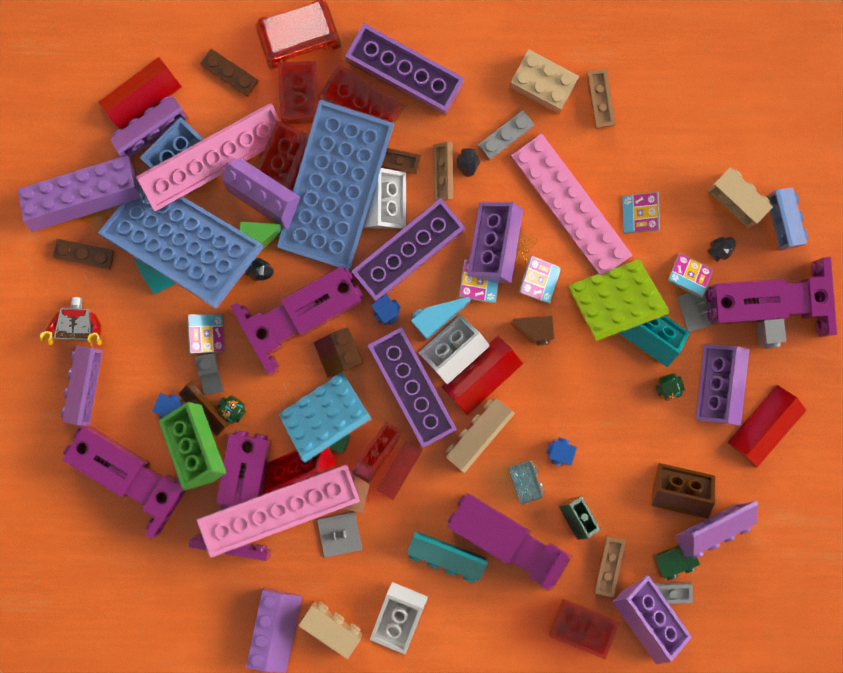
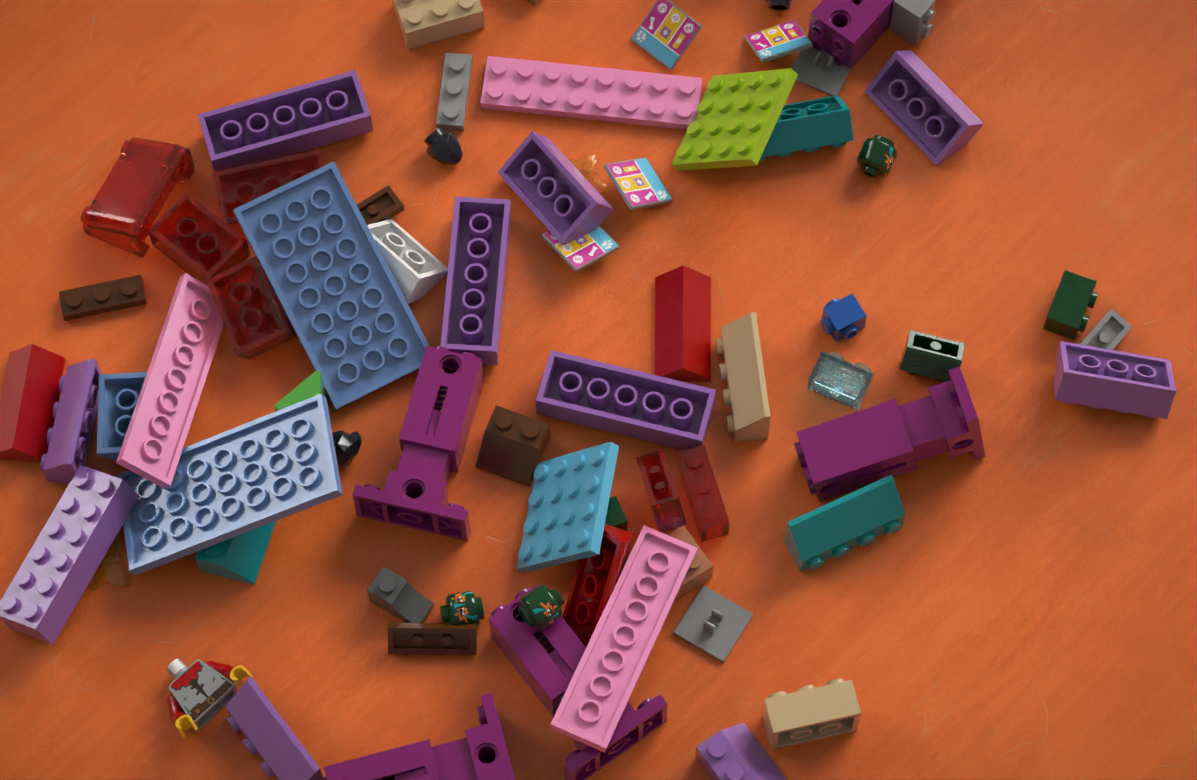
camera: 45 degrees left, 20 degrees down
(83, 254) = (133, 618): reddish brown plate -> none
(166, 405) = (393, 675): blue brick -> none
(192, 446) = (462, 670): bright green slope -> none
(205, 333) = (352, 561): piece -> none
(254, 457) = (541, 607): none -> dark green head
(260, 192) = (263, 367): medium lavender slope -> none
(386, 310) = (516, 359): blue brick -> none
(398, 618) = (867, 639): white slope -> none
(436, 316) = (572, 315): medium azure slope -> none
(443, 171) = (427, 178): medium nougat plate -> none
(454, 349) = (627, 325): white slope -> none
(535, 329) = (685, 227): reddish brown slope -> none
(584, 628) = (1058, 454): clear red brick -> none
(609, 566) = (1015, 376): medium nougat plate -> none
(684, 491) = (1002, 236): reddish brown slope -> none
(718, 529) = (1074, 229): medium lavender slope -> none
(767, 425) = (1008, 103): red slope -> none

